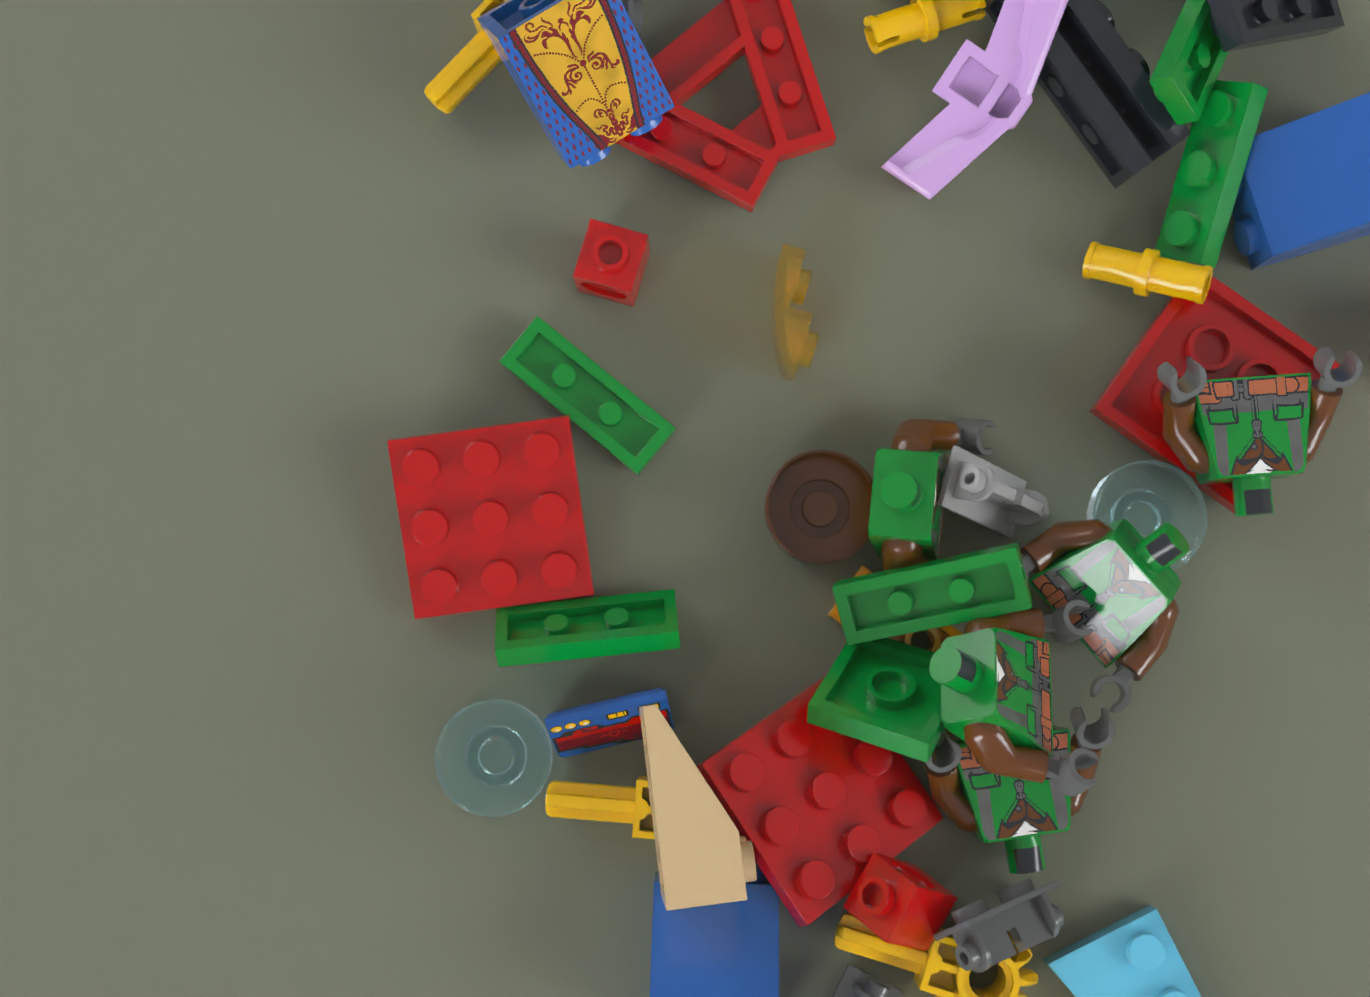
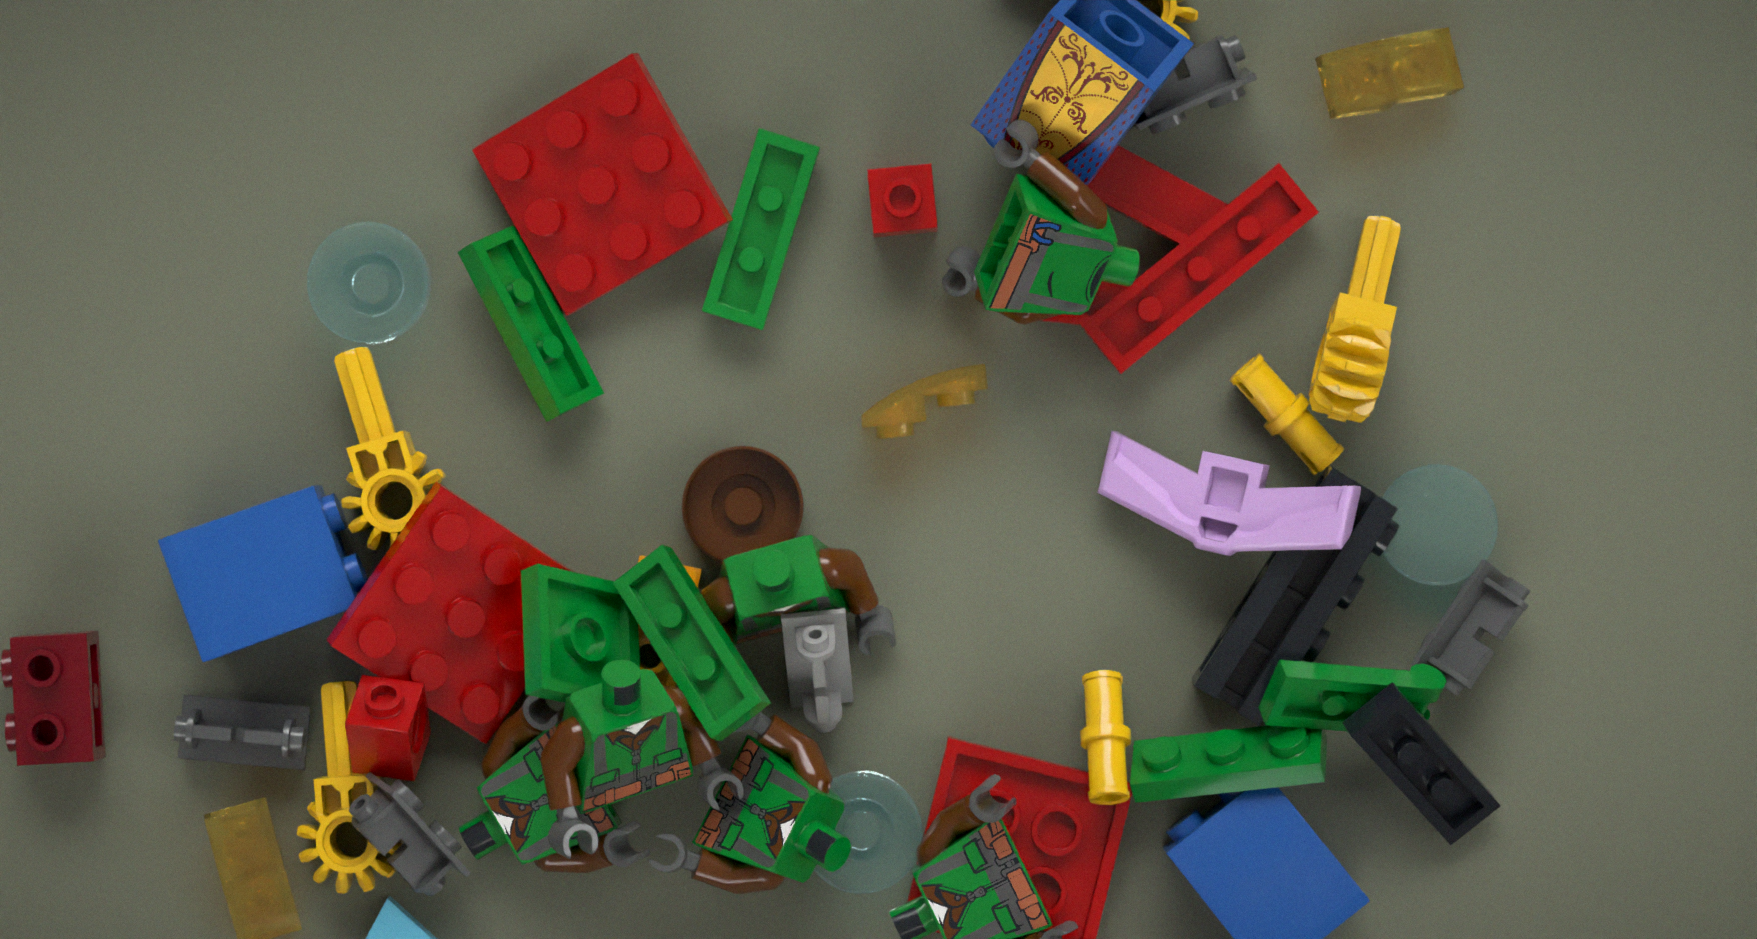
camera: 65 degrees right, 5 degrees up
(603, 722) = (449, 382): slope -> none
(695, 839) = (372, 503): tan slope -> none
(702, 142) = (1046, 244): none -> torso

